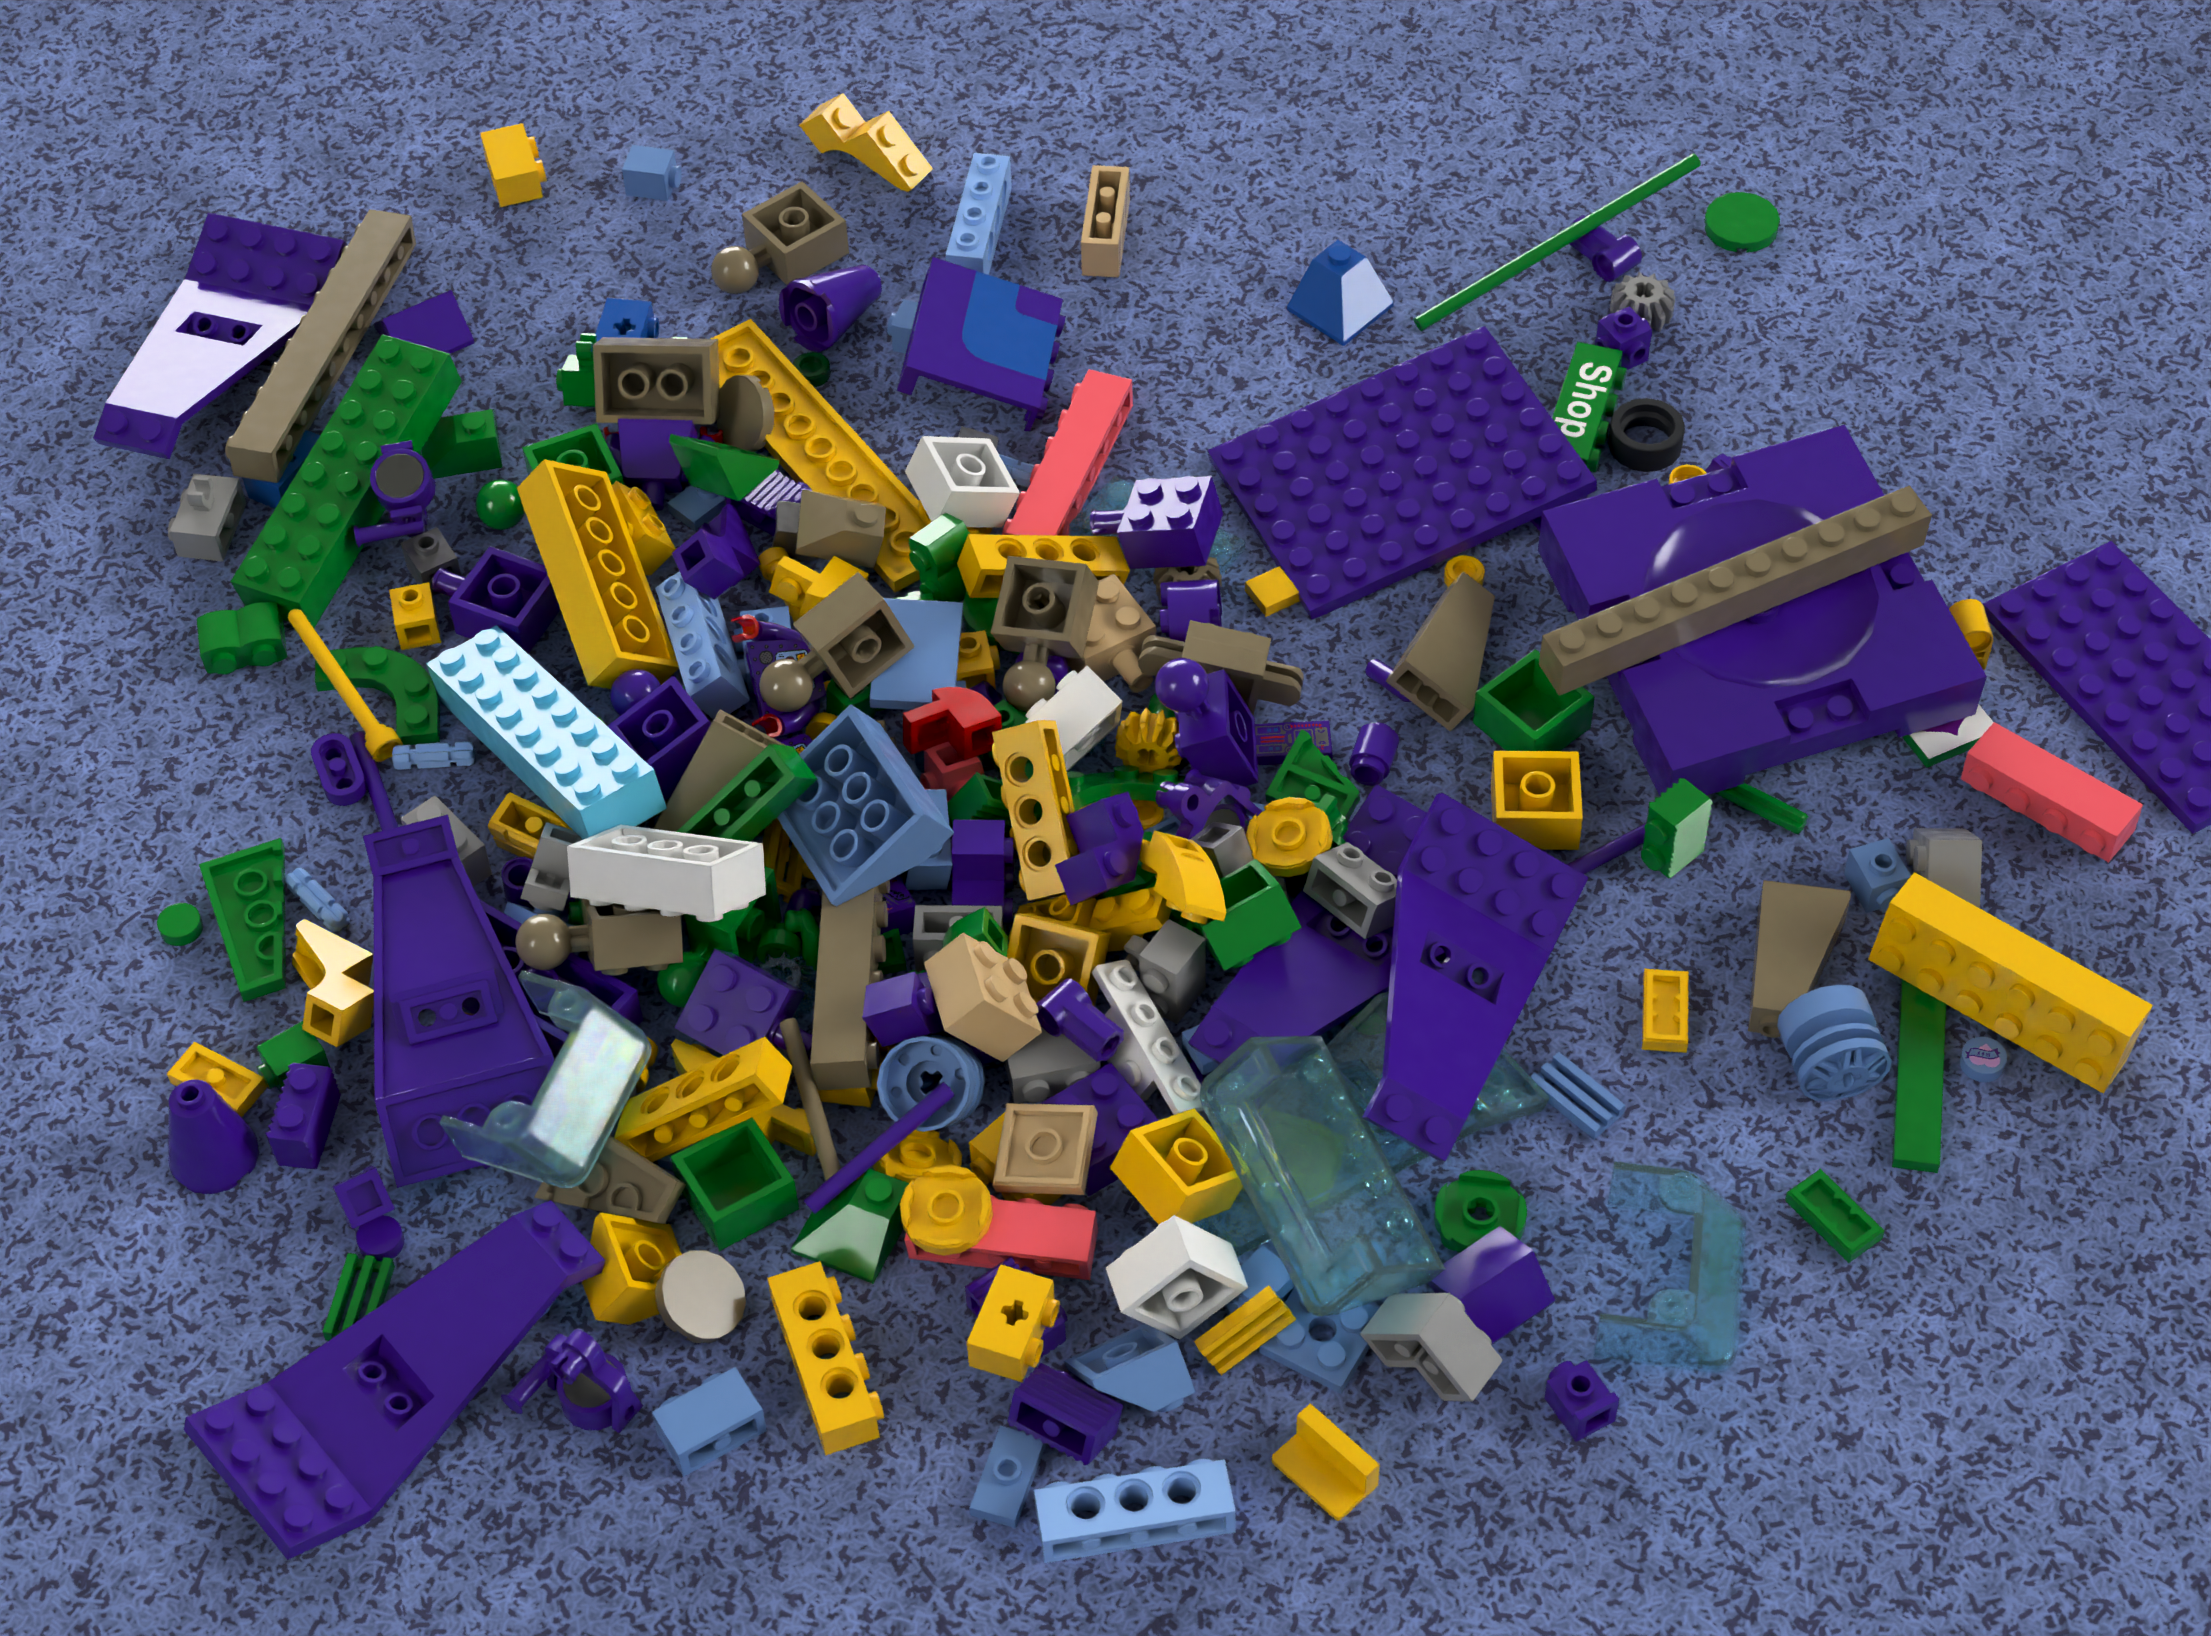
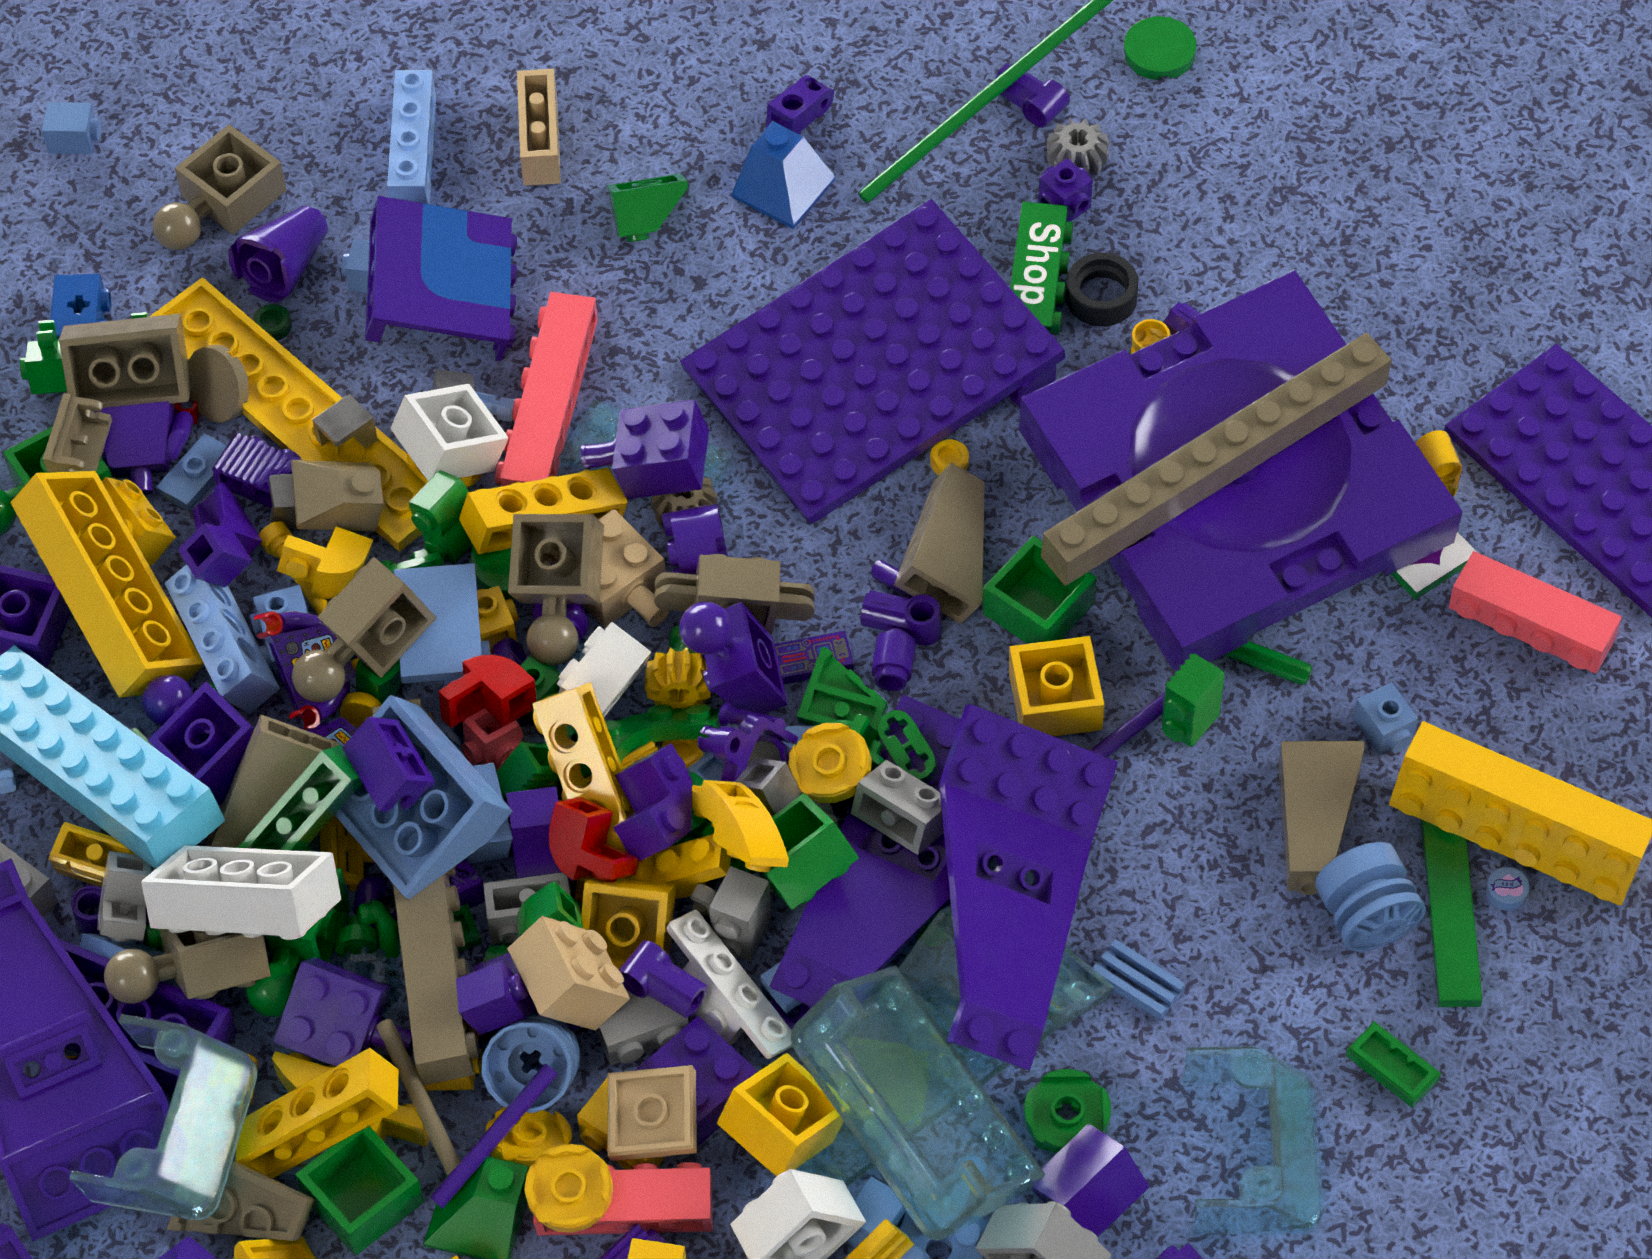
camera: 10 degrees left, 5 degrees up
(596, 437) = (77, 436): none -> dark tan hinge
(721, 466) = (207, 445): green slope -> none
(835, 767) = (388, 763): none -> dark purple hinge
(860, 460) = (343, 422): none -> flat silver panel
(876, 143) = (291, 67): yellow arch -> none
(1019, 876) = (579, 842): none -> red brick
(1196, 304) = (644, 204): none -> green slope
(1272, 591) = (767, 501): yellow tile -> none
(1370, 230) = (800, 104): none -> dark purple leg
(1381, 831) = (915, 742): none -> green beam
(1403, 713) = (891, 611): none -> dark purple piece
(1665, 1010) = (1208, 883): yellow plate -> none
(1948, 859) = (1450, 699): light grey brick -> none

